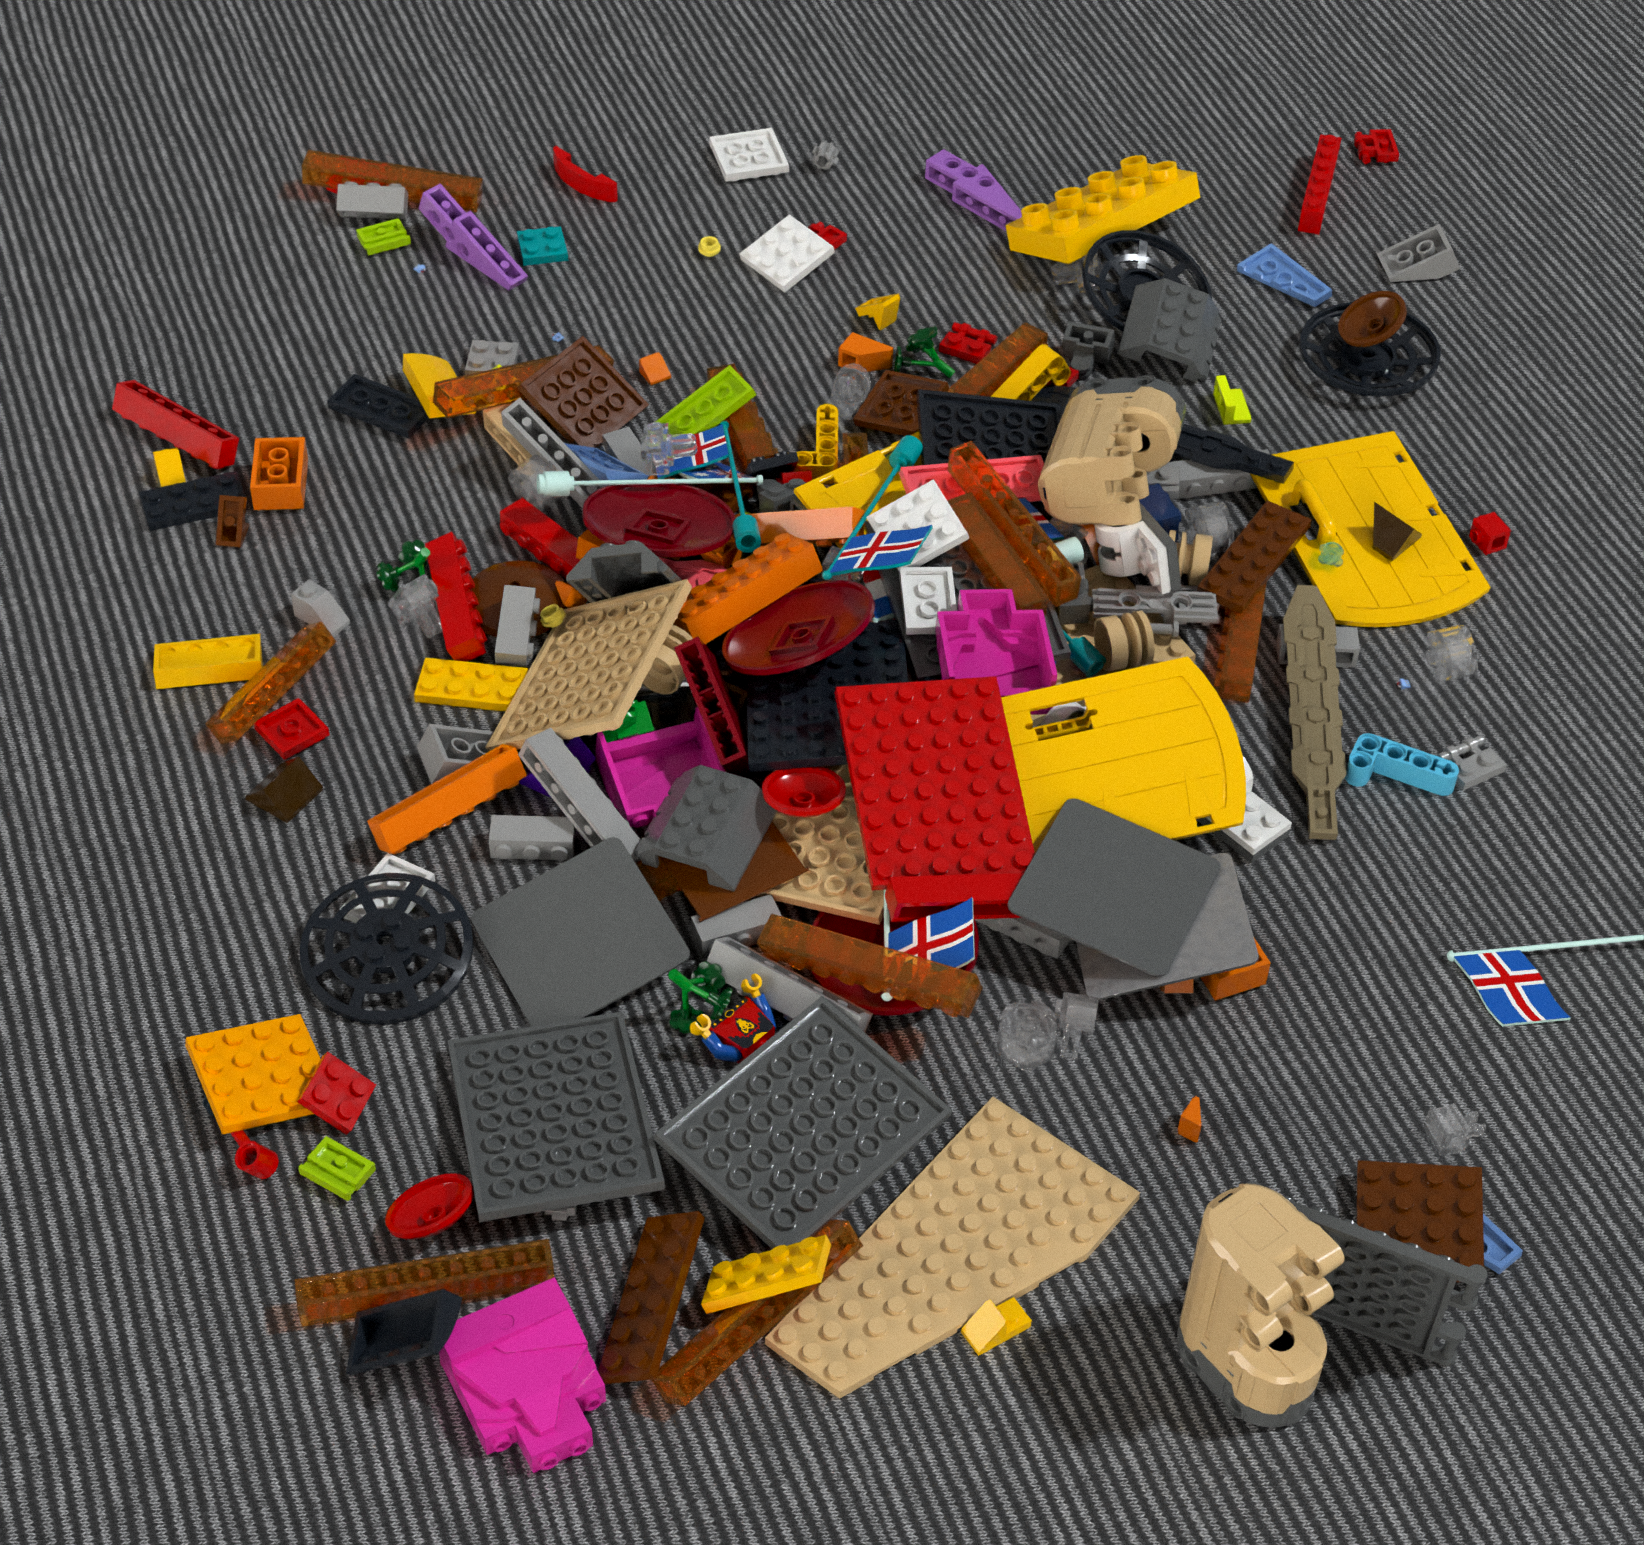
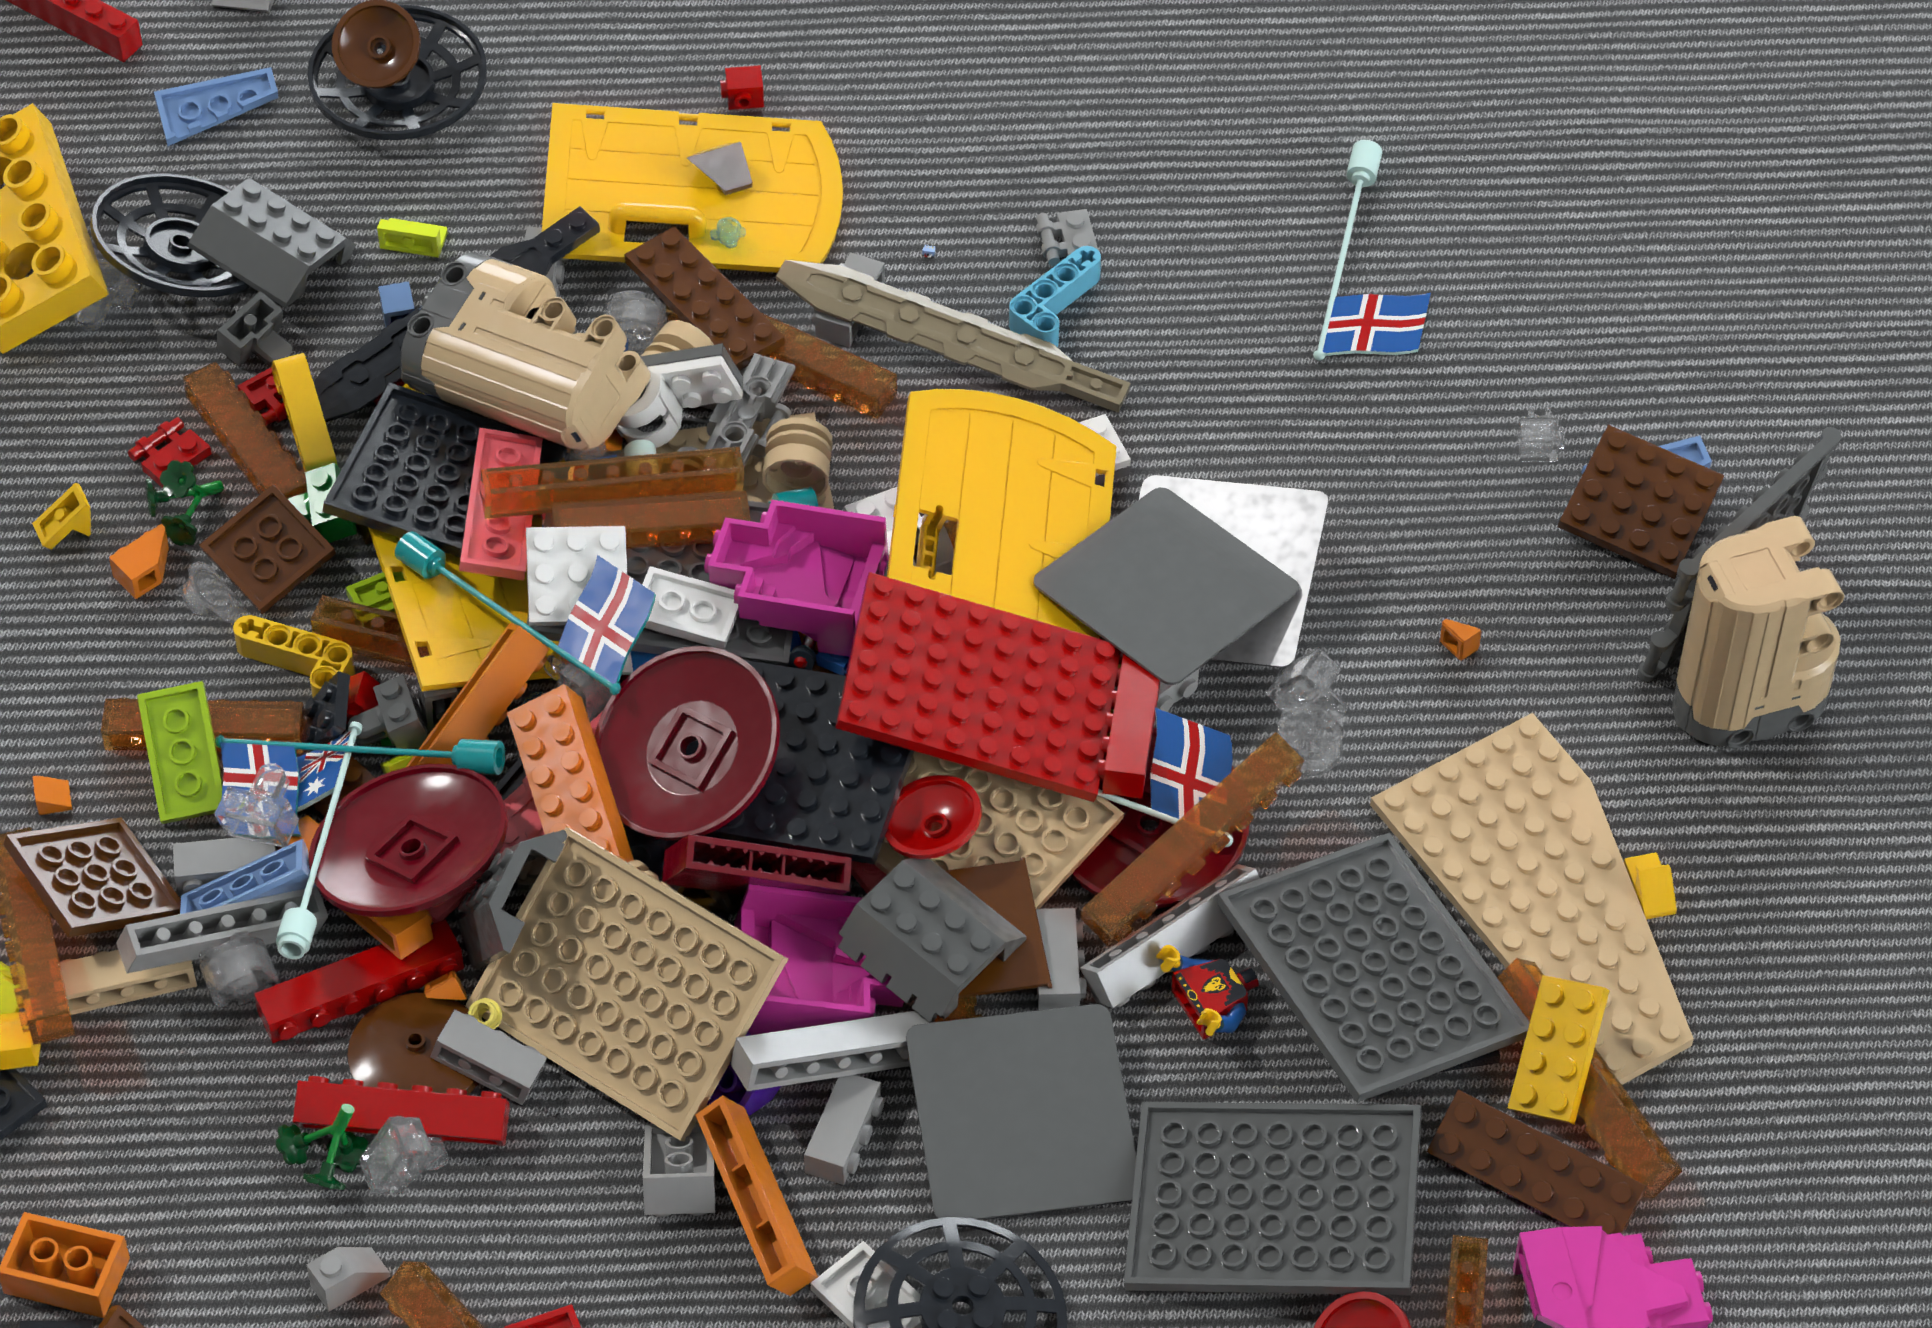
camera: 70 degrees left, 5 degrees up
(468, 684) = (549, 1138): yellow plate -> none
(707, 984) = (1177, 999): dark green plant -> none
(1451, 653) = (921, 187): clear brick -> none

